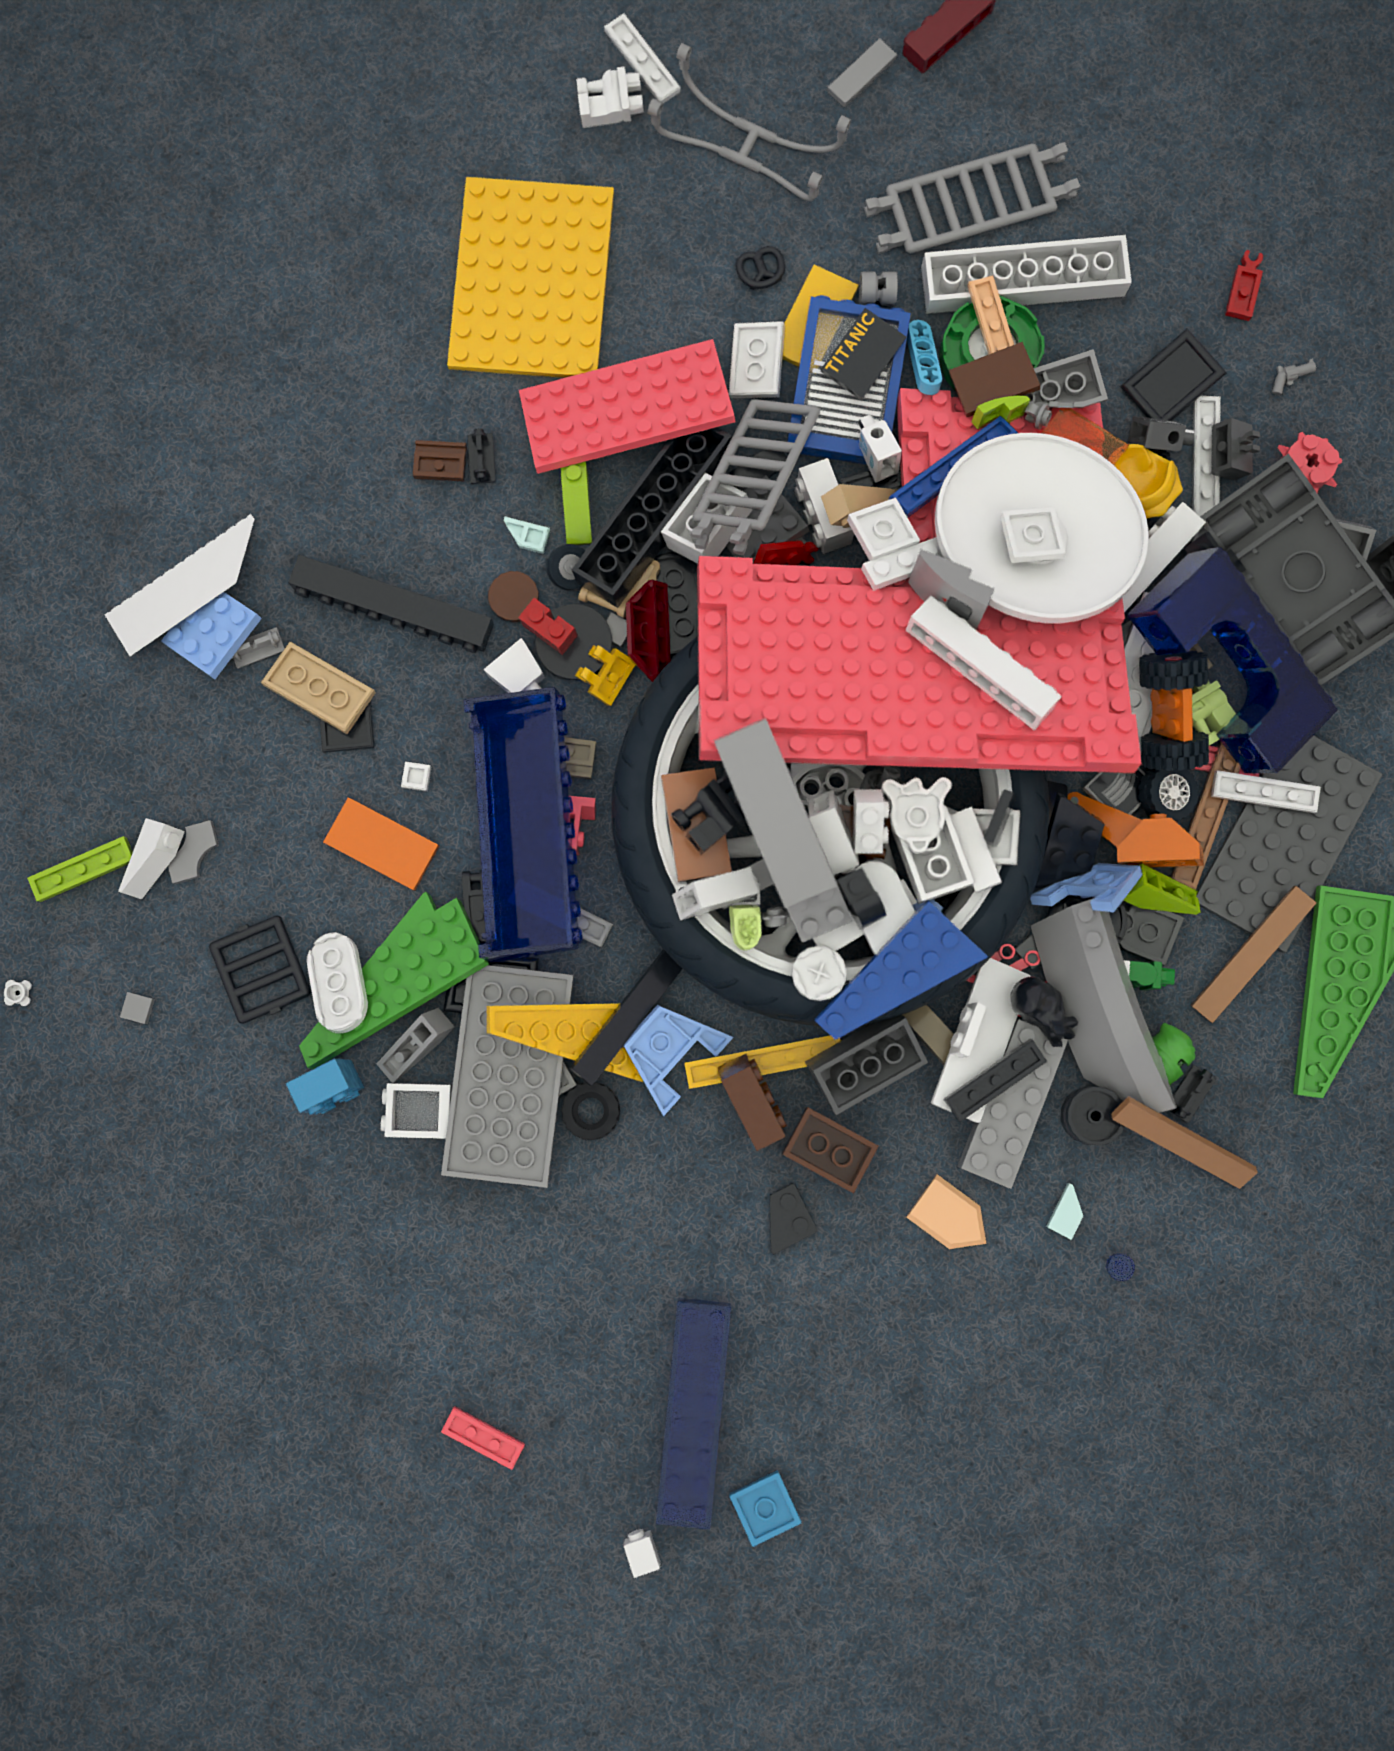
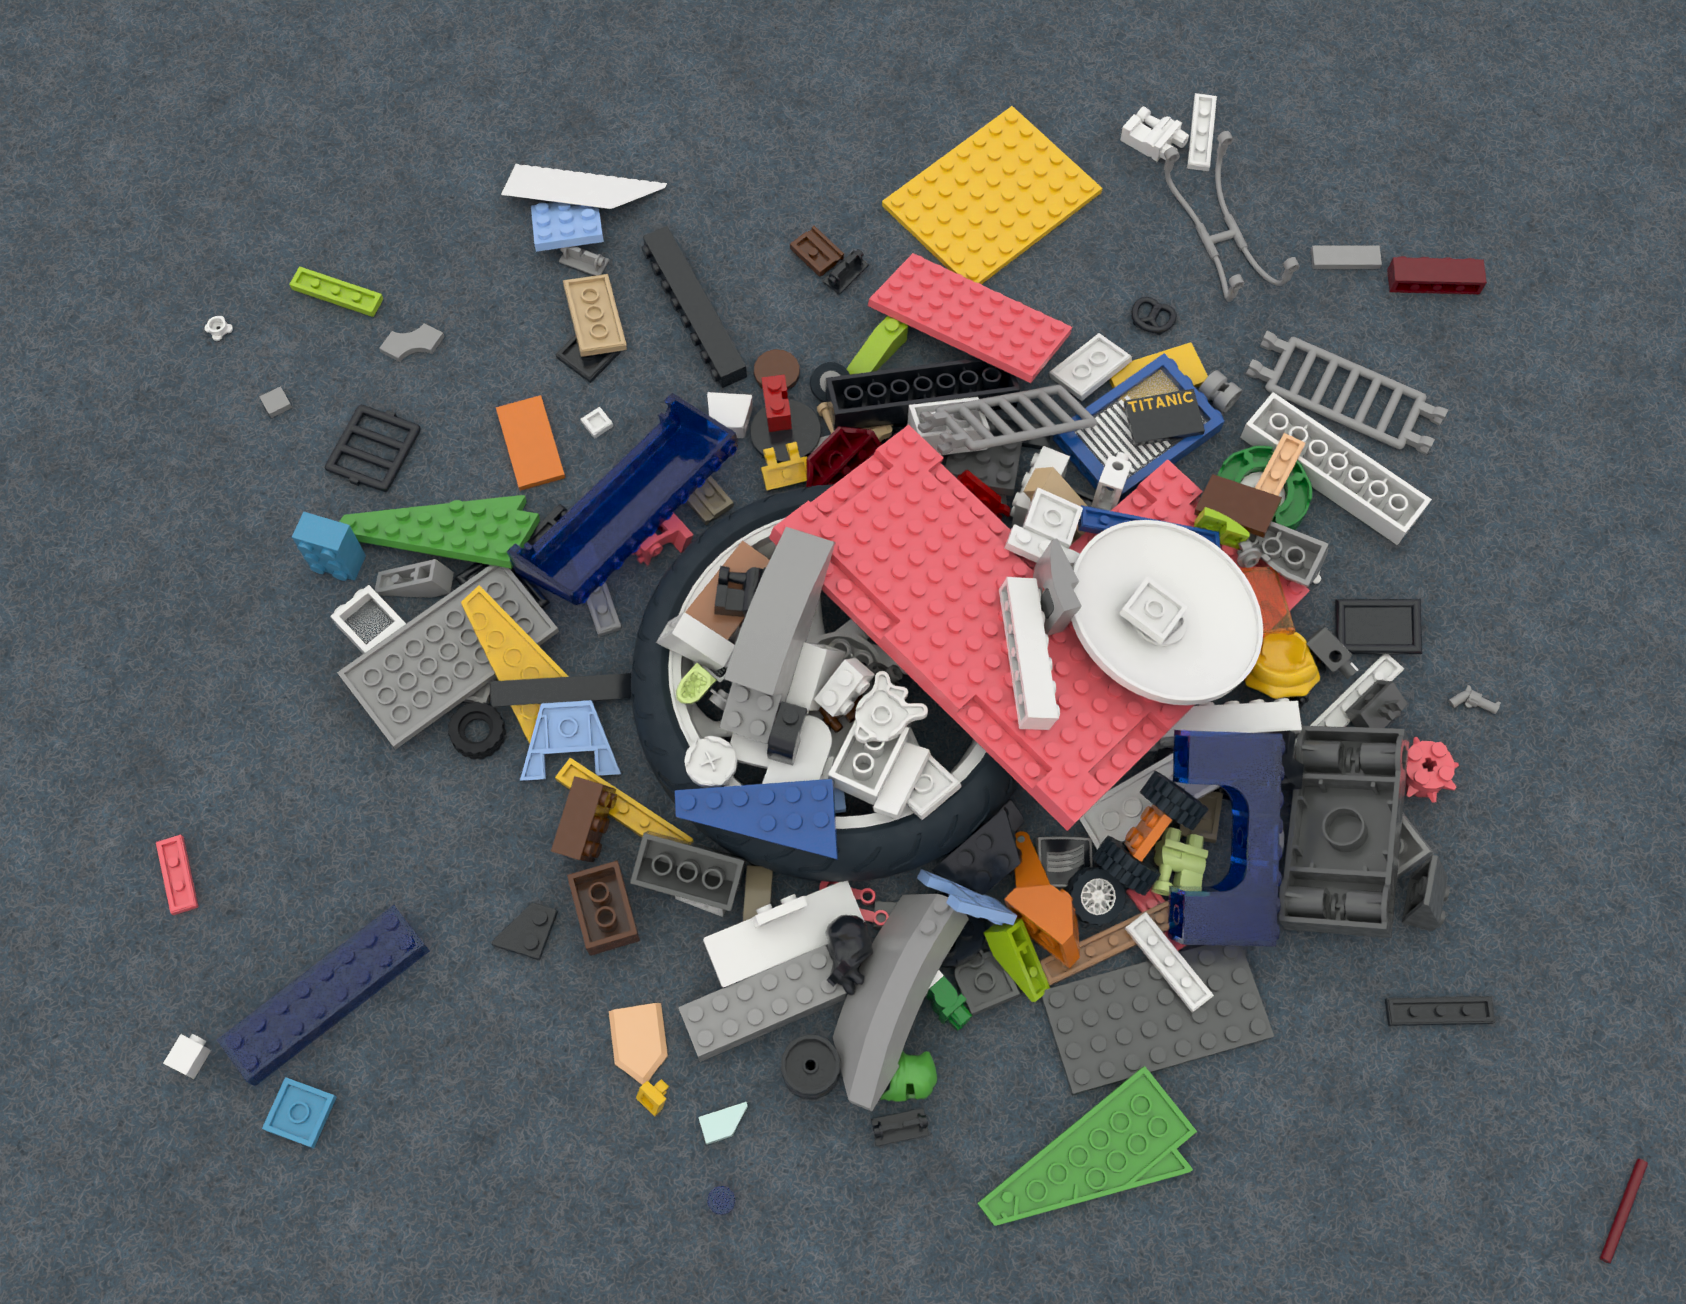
camera: 40 degrees right, 15 degrees down
(151, 856) = (382, 320): white slope -> none
(337, 983) = (408, 496): white tile -> none
(528, 535) = (826, 343): light aqua tile -> none
(927, 357) = (1207, 457): medium azure beam -> none
(995, 1080) = (763, 965): black tile -> none
(1000, 818) = (939, 772): black tile -> none
(1002, 1245) = (652, 1096): none -> yellow tile
(1184, 1142) = (855, 1149): medium nougat tile -> none
(1244, 288) = (1493, 613): red plate -> none
(1253, 954) = (1045, 1068): medium nougat tile -> none

